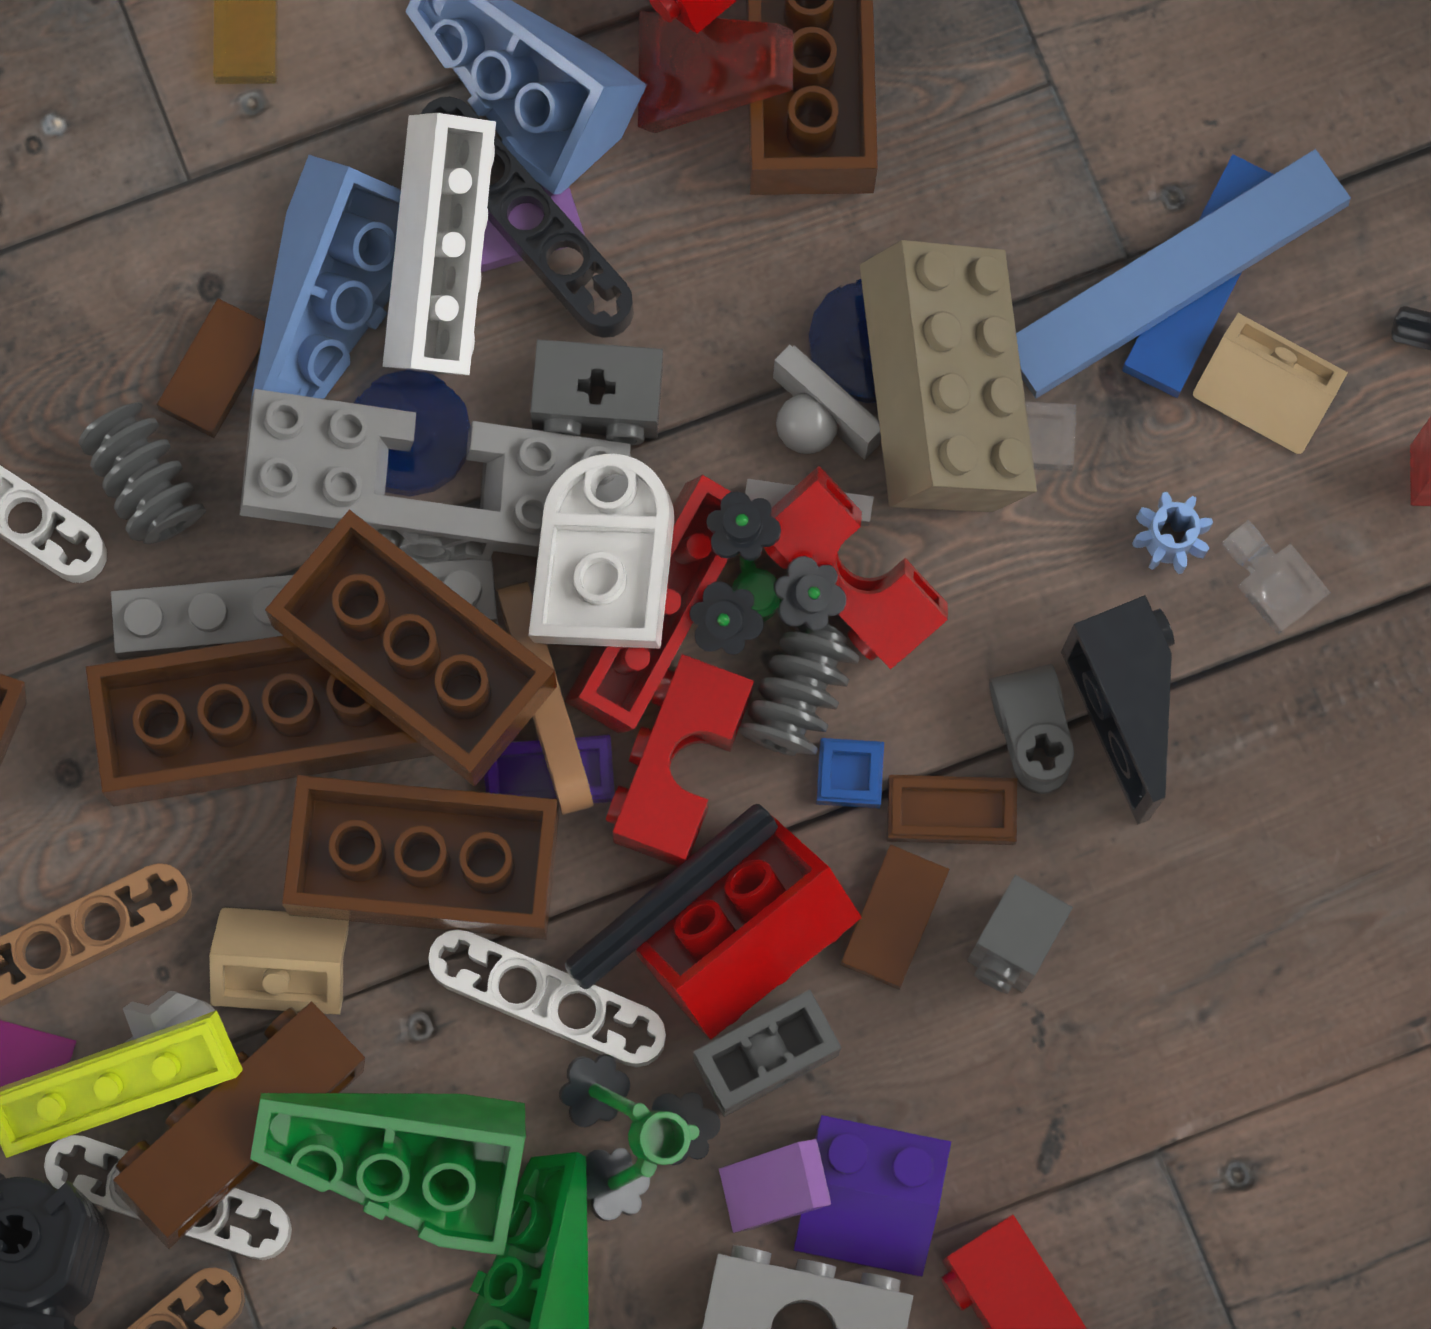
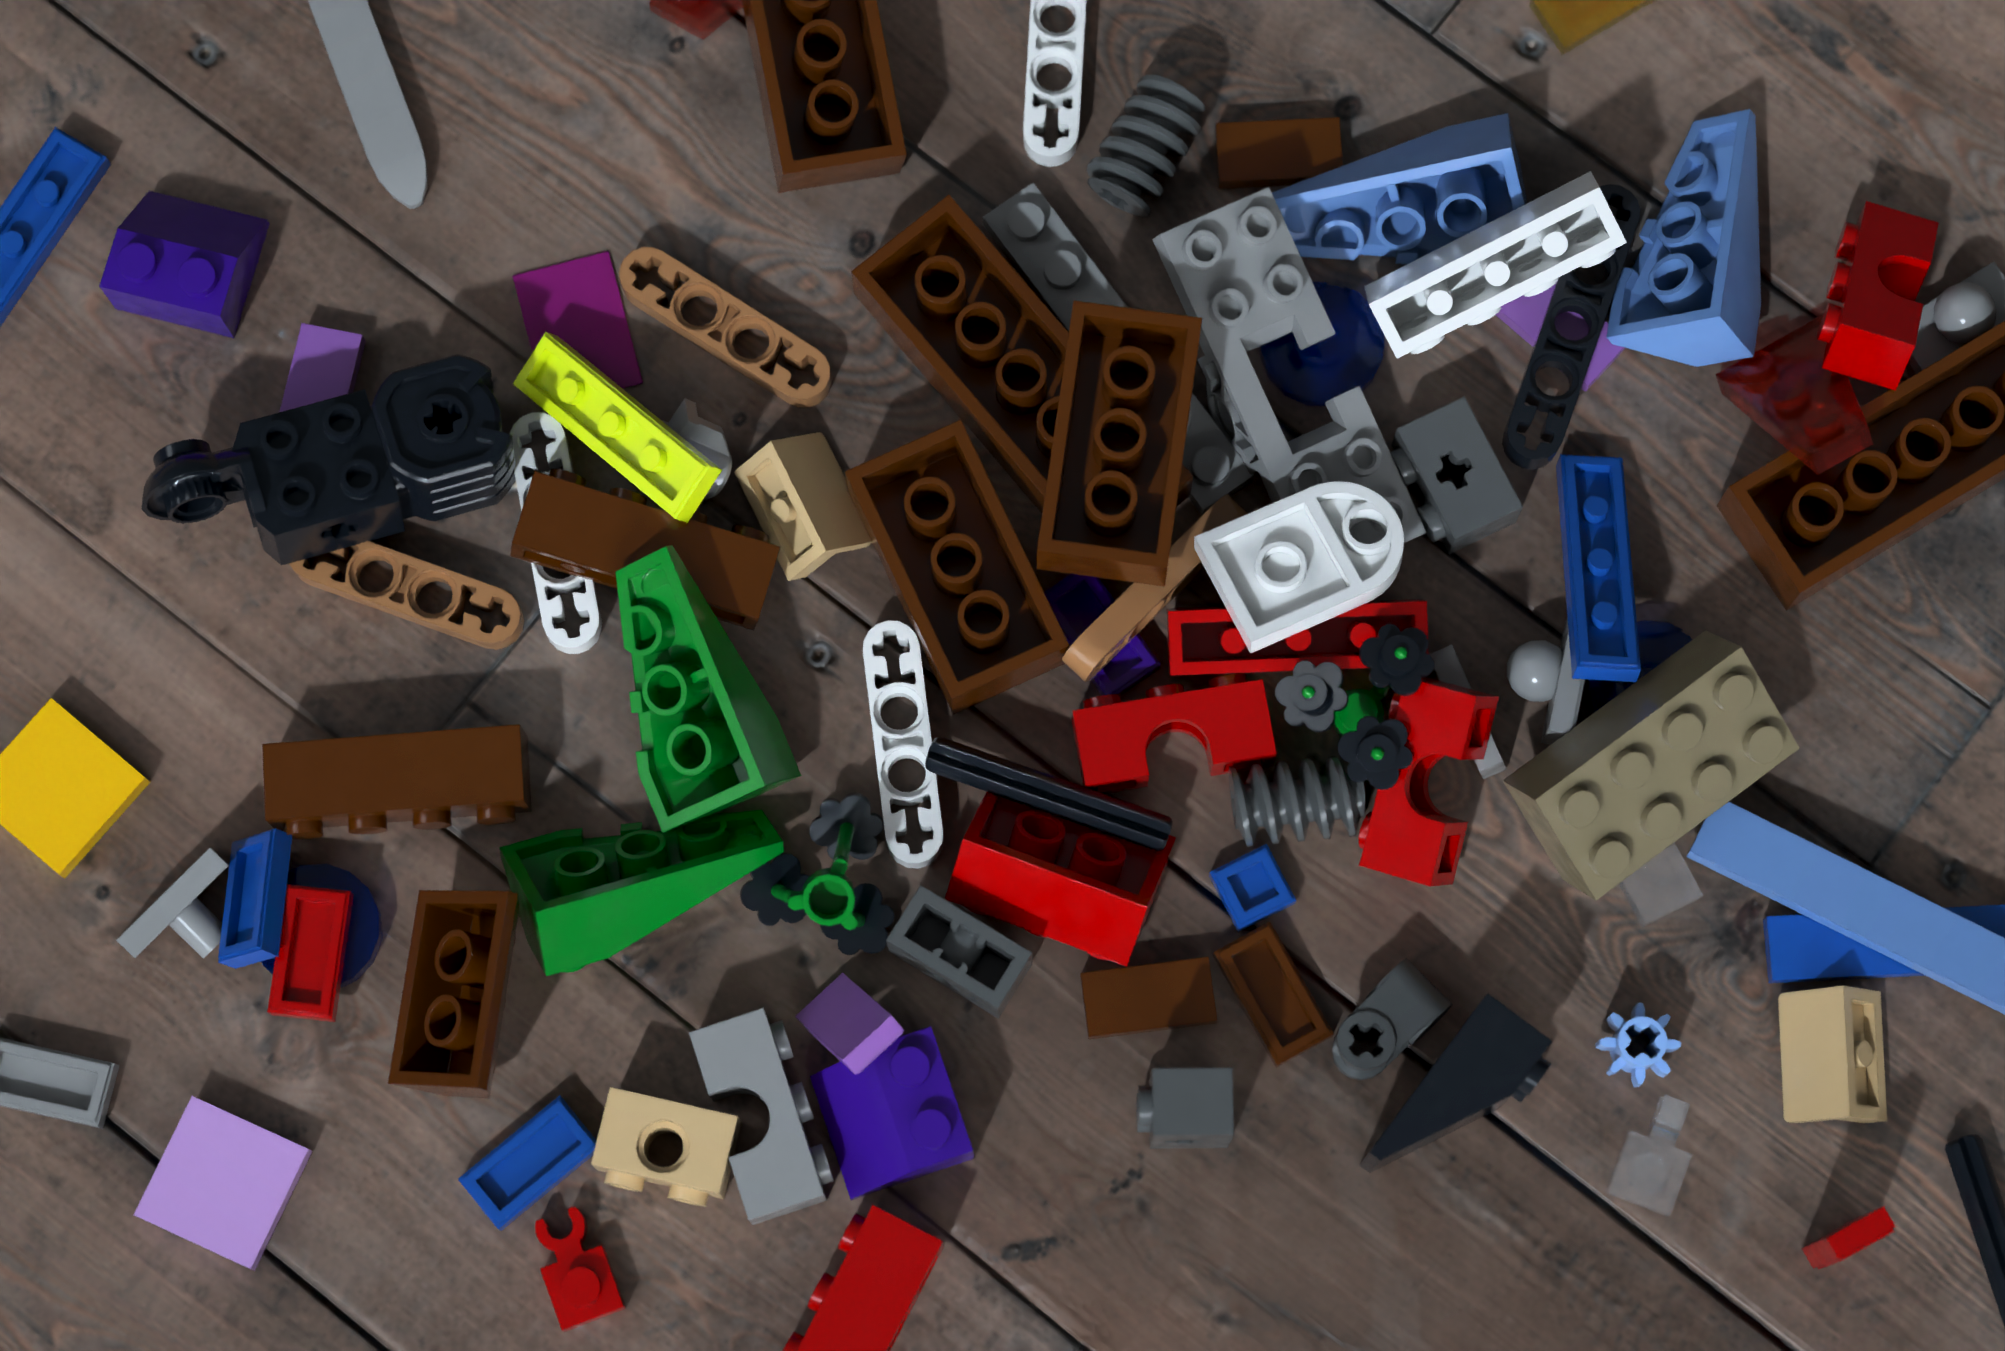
camera: 65 degrees right, 0 degrees up
(752, 320) = (1598, 568): none -> blue tile

